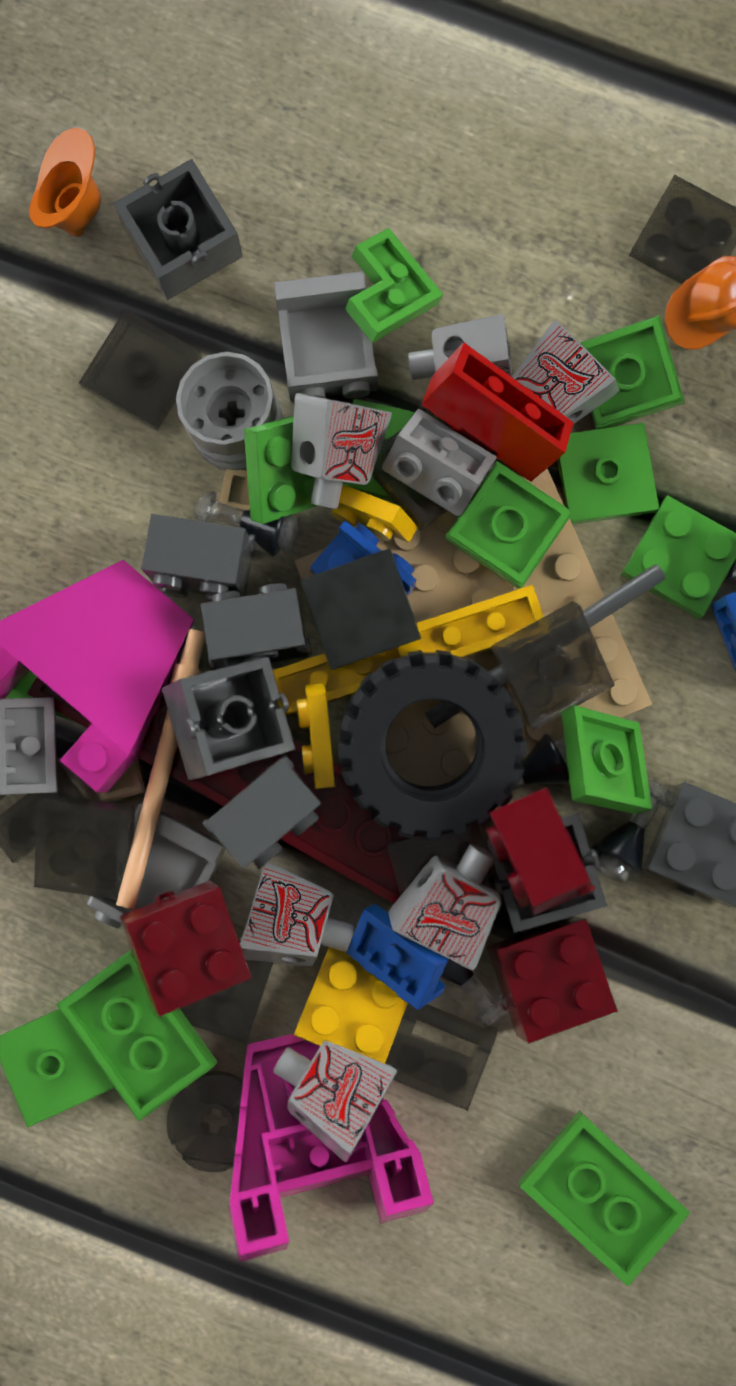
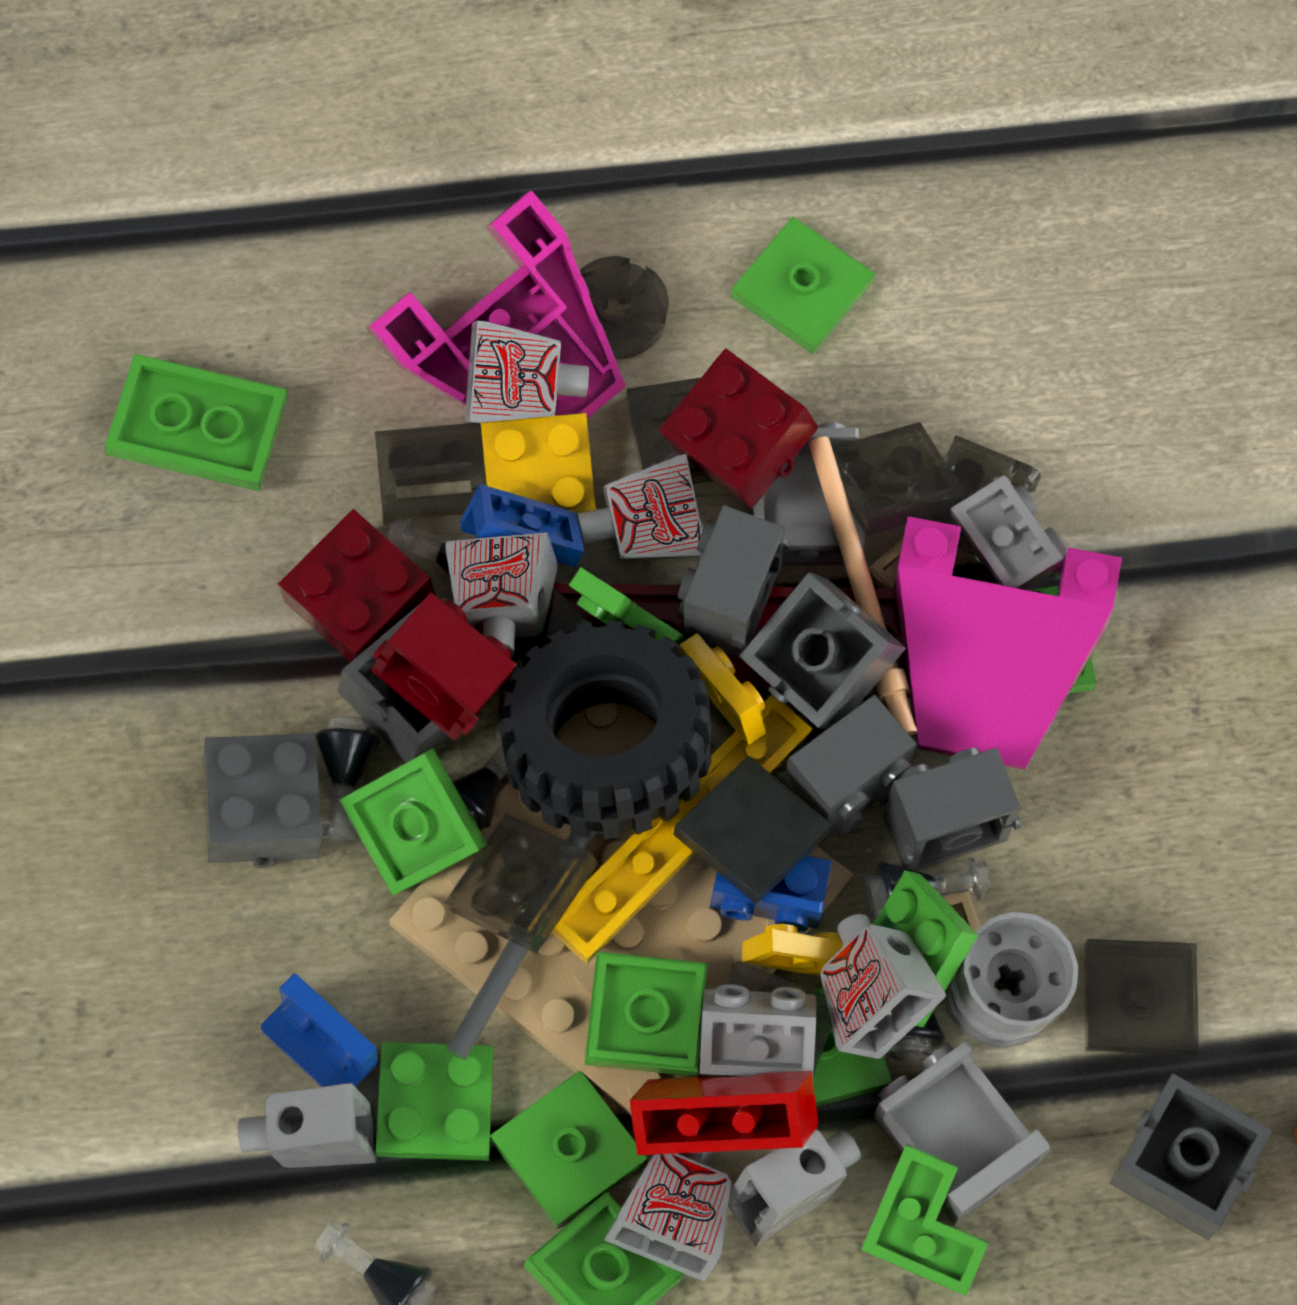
camera: 145 degrees right, 15 degrees down
(136, 1049) = (716, 316): bright green tile -> none
(370, 851) = (610, 605): none -> bright green plate

